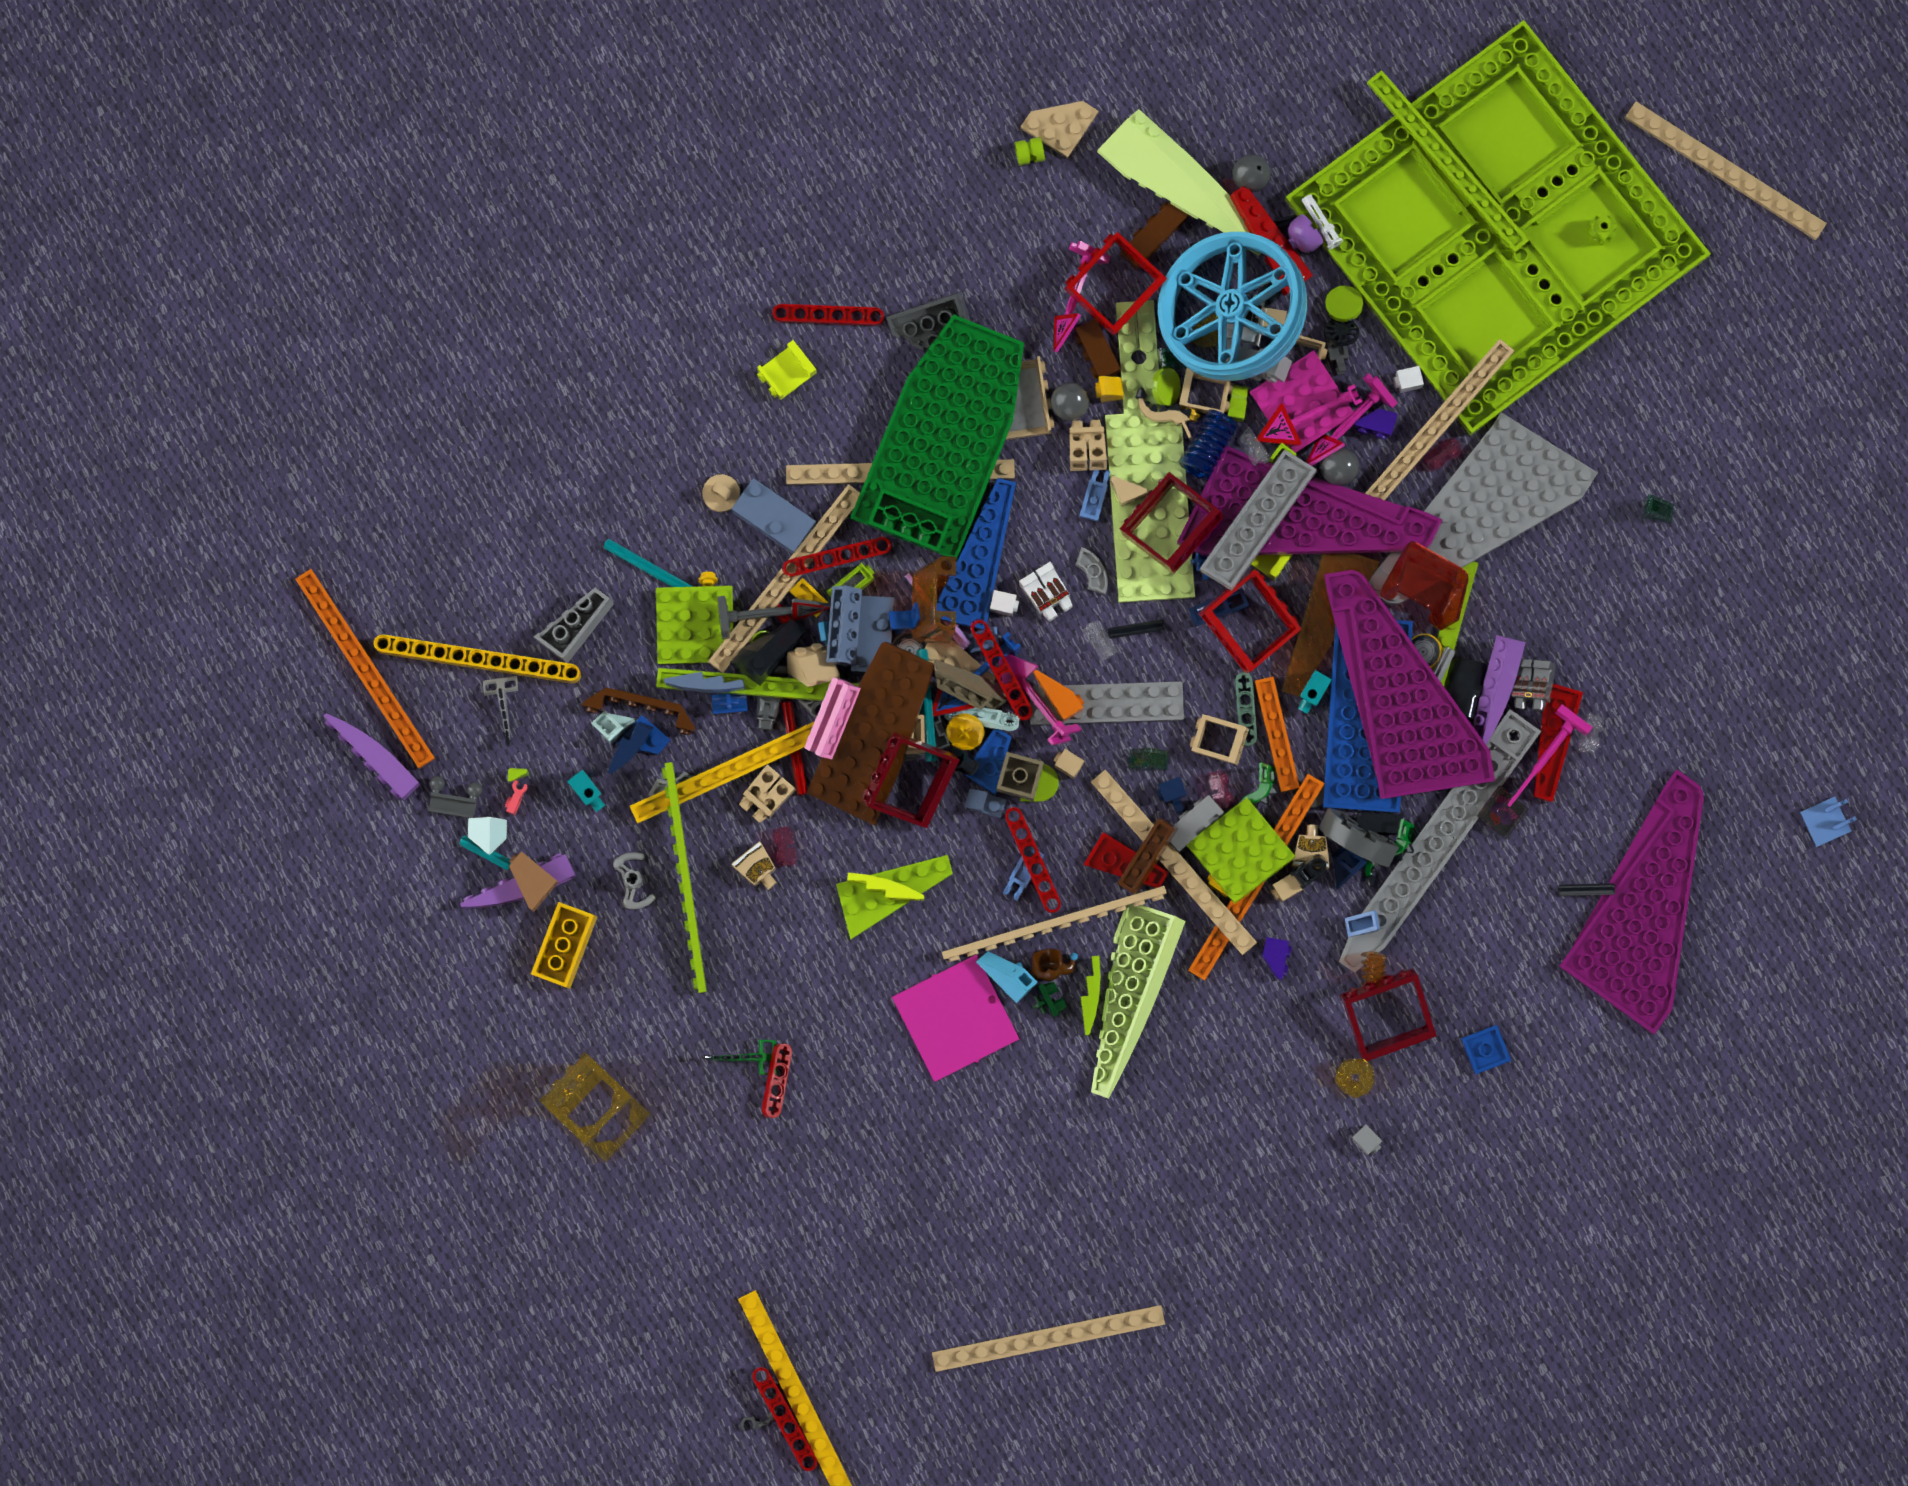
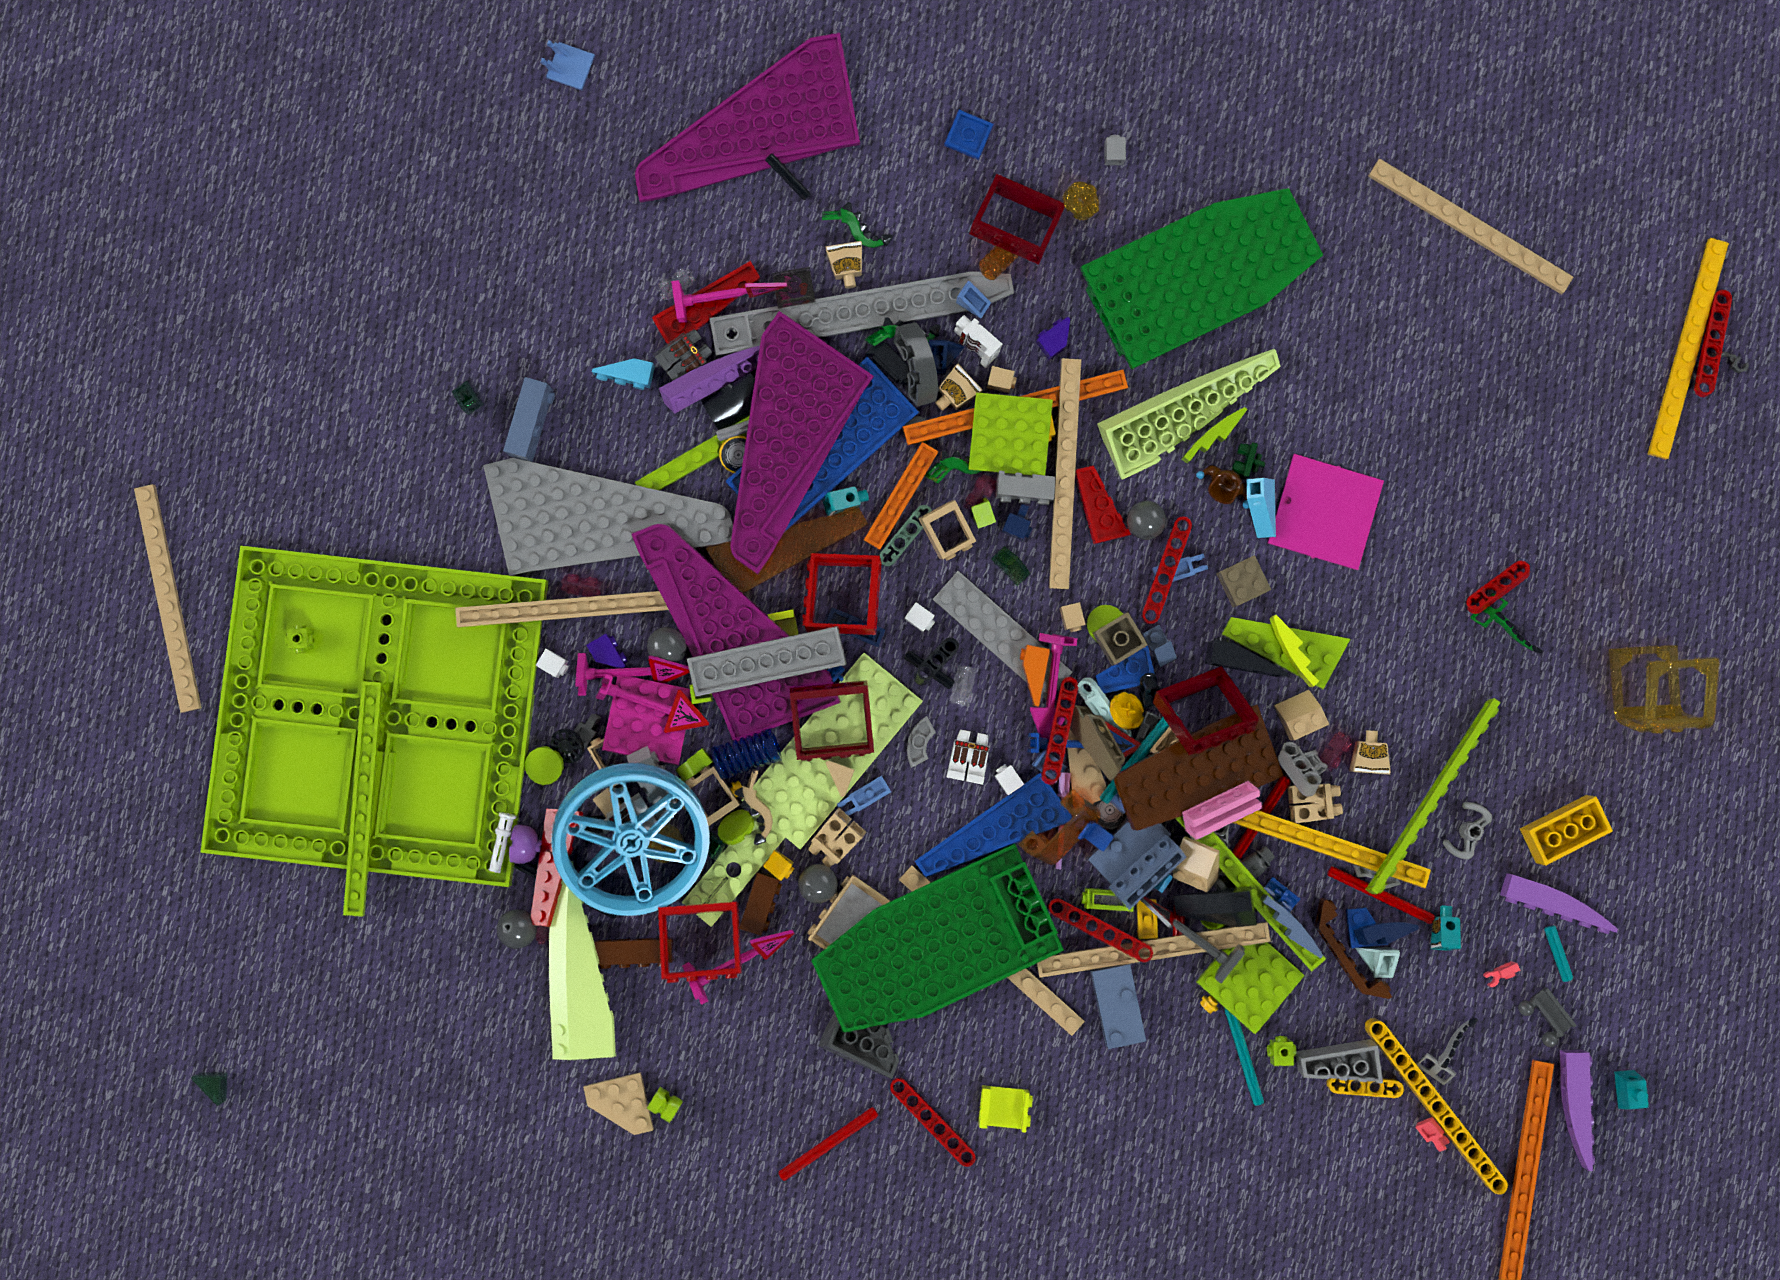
camera: 145 degrees left, 5 degrees up
(346, 800) = (1632, 1091): none -> teal torso
(462, 638) = (1433, 1132): none -> coral plate
(487, 832) = (1546, 966): light aqua slope -> none
(515, 774) = (1485, 991): lime slope -> none
(531, 879) = (1551, 900): medium nougat slope -> none
(537, 623) = (1364, 1089): none -> yellow beam
(623, 587) = (1283, 1057): none -> lime brick
(653, 774) = (1383, 896): none -> red axle
(720, 493) = (1138, 1061): tan tile -> none
(796, 816) = (1302, 768): none -> light grey piece
(835, 848) = (1301, 715): none -> tan slope
(887, 231) = (828, 1144): none -> red axle
(926, 841) = (1232, 656): none -> black slope
(968, 906) = (1243, 581): none -> dark tan brick
(1046, 926) = (1200, 513): tan plate -> none
(1082, 883) = (1146, 520): none -> dark grey piece
(1139, 646) = (930, 667): none -> black beam
(1147, 856) = (1083, 492): reddish brown brick -> none
(1178, 658) = (920, 617): none -> white brick
(1204, 775) = (983, 514): none -> lime panel
(1215, 1108) = (1199, 273): none -> green wing
(1253, 447) = (716, 720): clear hinge -> none
(1308, 871) = (978, 373): black piece -> none
(1330, 899) = (978, 339): none -> white hips
(1429, 582) = (684, 496): clear red windscreen -> none
(1482, 867) = (846, 261): none -> torso
(1499, 899) = (856, 228): none -> green piece
(1557, 640) = (629, 371): none -> medium azure slope
(1596, 533) = (528, 419): none -> sand blue brick

